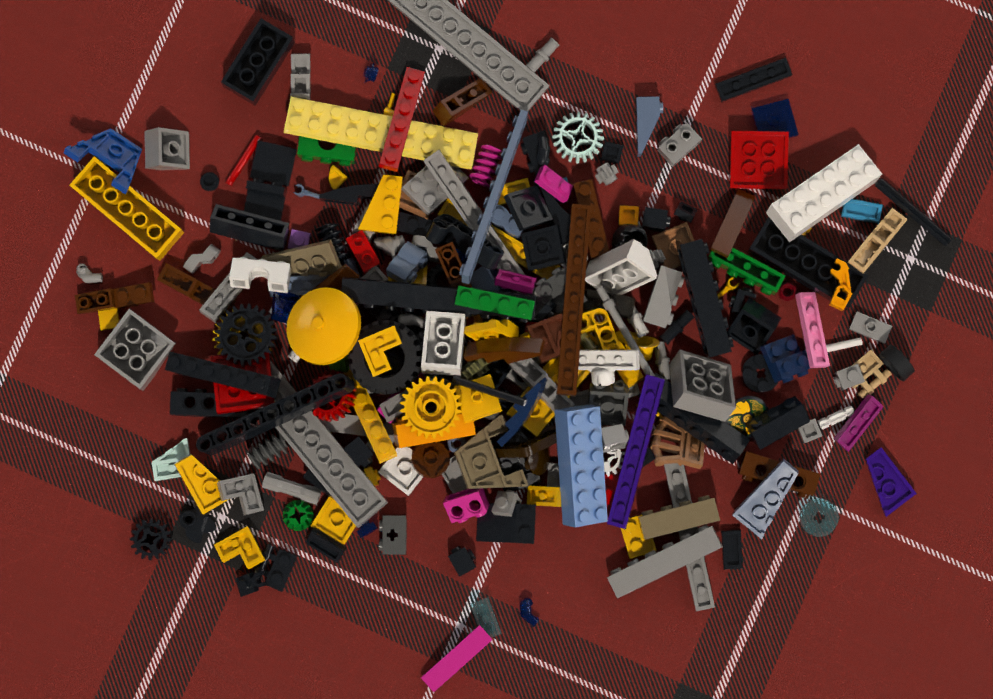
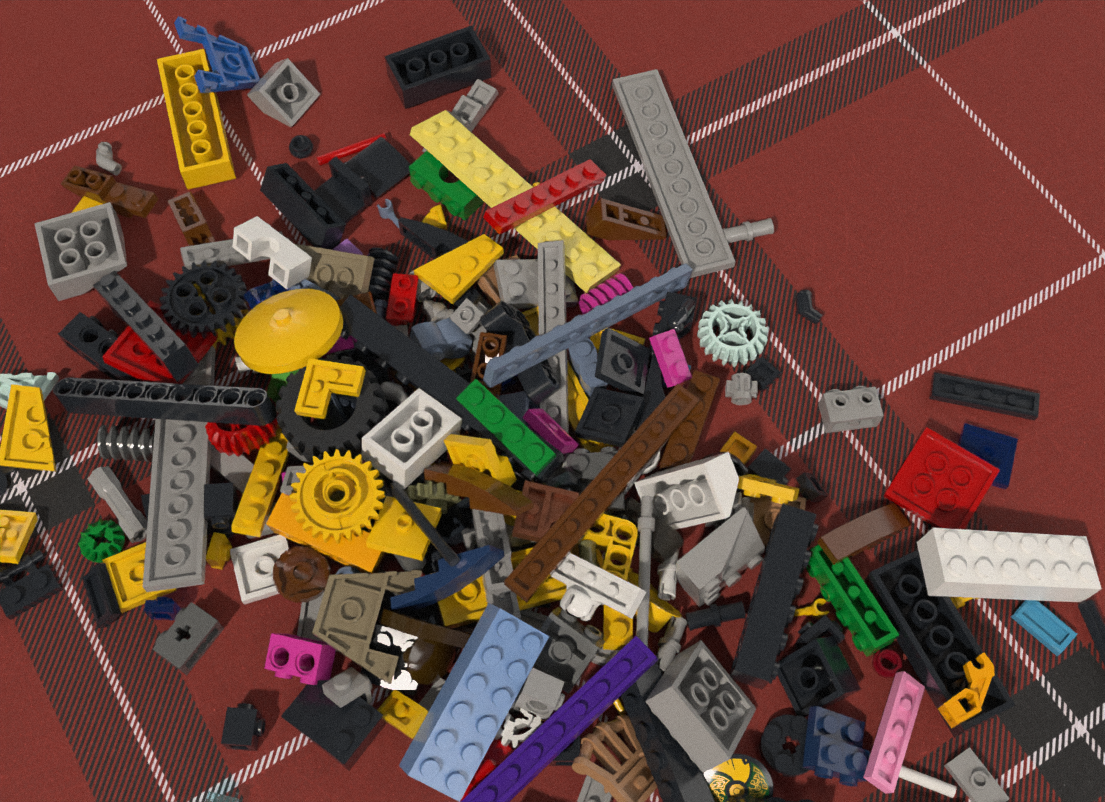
camera: 30 degrees right, 20 degrees down
(207, 257) = (223, 209): light grey piece -> none
(246, 489) = (68, 469): light grey plate -> none
(370, 72) = (547, 143): clear blue plate -> none
(415, 236) = (468, 315): none -> light grey bracket
(610, 88) = (805, 308): none -> black arm
(647, 116) = (827, 361): sand blue slope -> none
(659, 237) = (759, 486): none -> yellow plate
(877, 240) = (1048, 671): tan slope -> none

